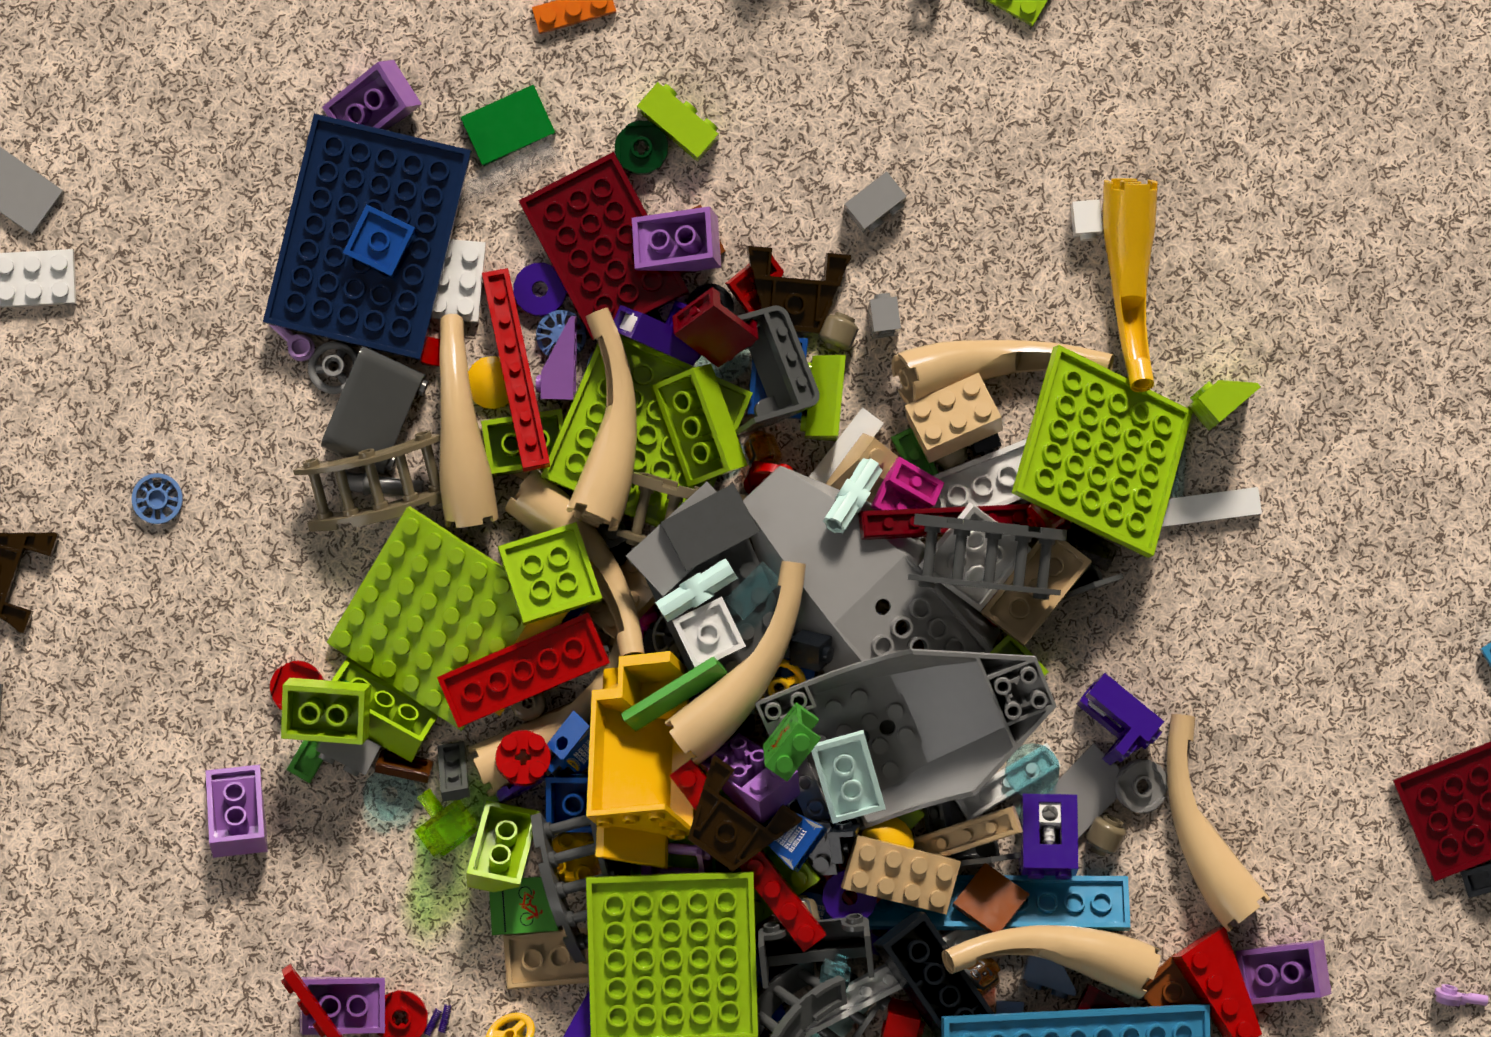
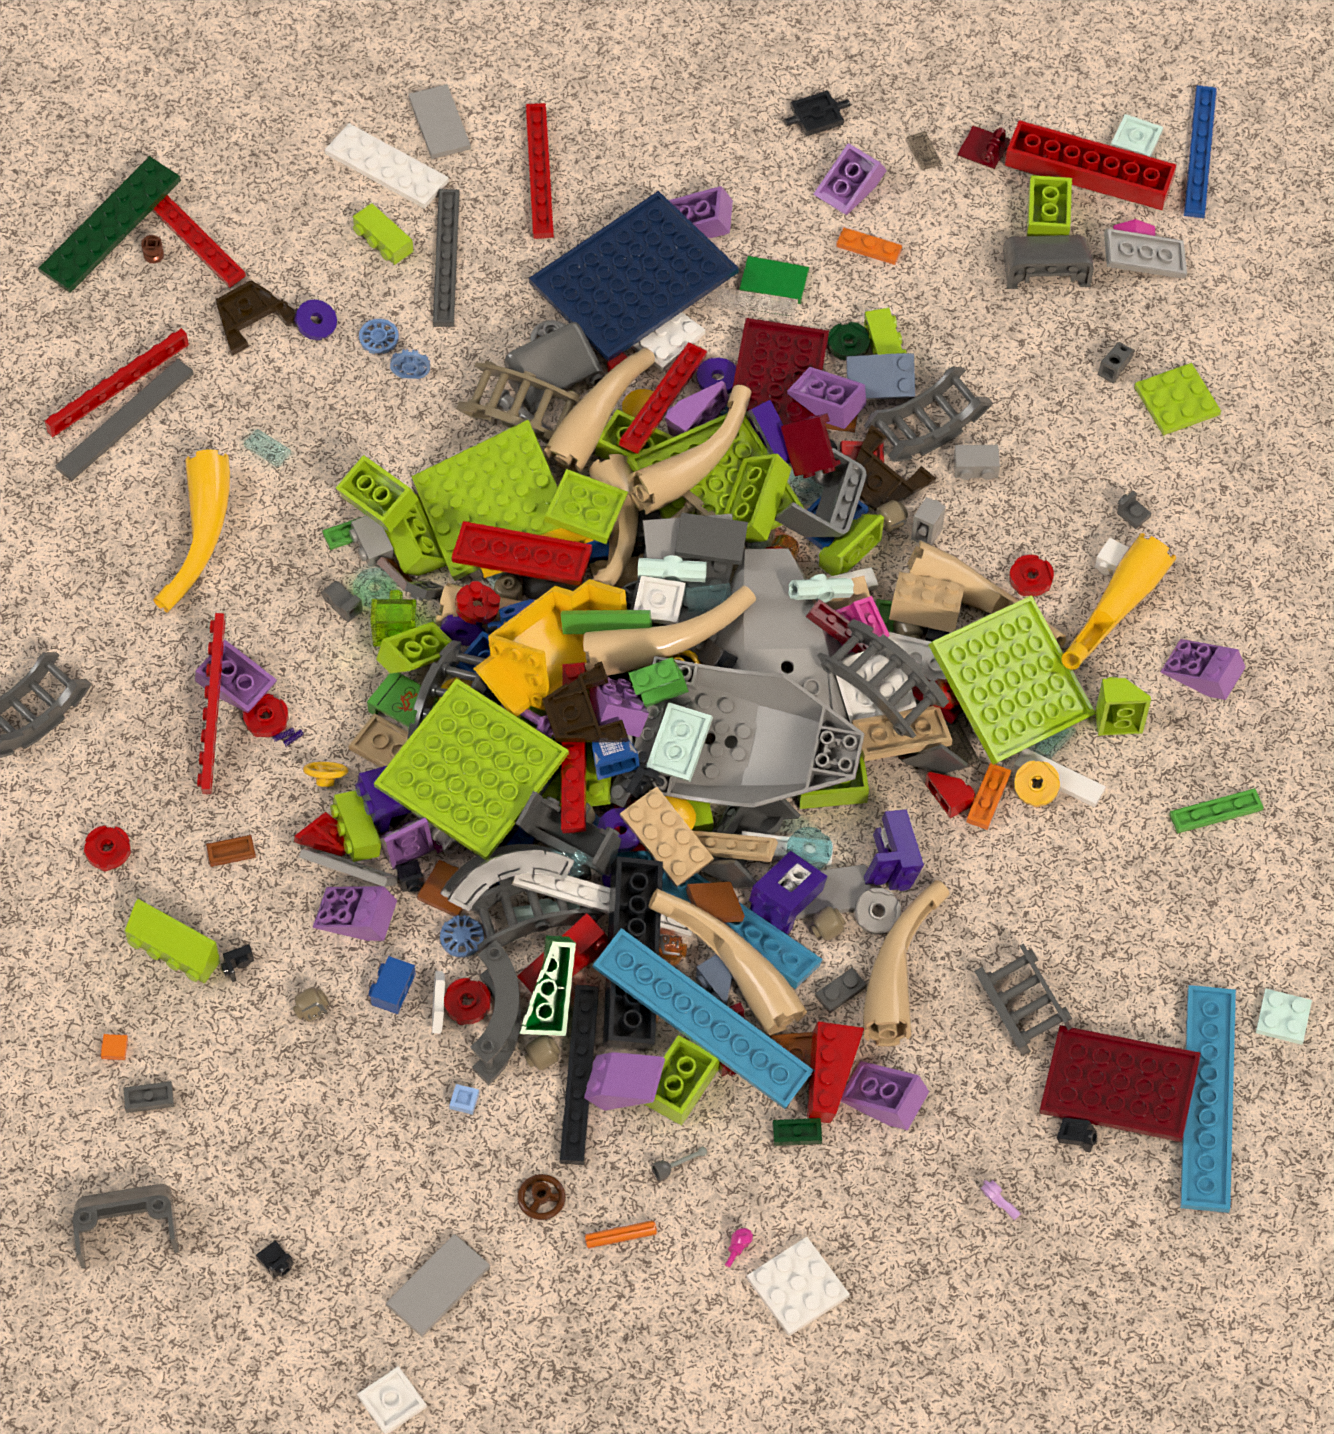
camera: 40 degrees right, 25 degrees down
(62, 374) = (382, 234): none -> lime brick
(90, 519) = (323, 312): none -> dark purple tile
(149, 349) = (446, 258): none -> dark grey tile
(149, 828) = (208, 499): none -> yellow brick
(151, 715) = (267, 448): none -> clear light blue tile
(161, 168) = (539, 171): none -> red plate
(223, 517) = (410, 363): none -> medium blue wheel
(236, 811) = (269, 531): medium lavender slope -> none
(299, 346) = (539, 311): lavender plate -> none
(371, 836) = (342, 601): none -> dark grey leg
(379, 240) = (639, 276): blue plate -> none
(713, 173) = (884, 375): none -> sand blue slope
(813, 197) = (939, 436): none -> dark grey fence
(1023, 312) = (1027, 586): none -> red plate
(1067, 144) = (1132, 510): none -> dark grey bracket
(1120, 606) = (950, 793): none -> red slope
(1158, 586) = (988, 796): none -> orange plate
(1165, 892) = (840, 990): none -> dark grey plate
(1201, 548) = (1037, 796): none -> yellow plate
(1259, 281) = (1205, 667): none -> medium lavender slope
(1343, 808) = (1012, 1018): none -> dark grey fence
(1377, 433) = (1216, 810): none -> bright green tile

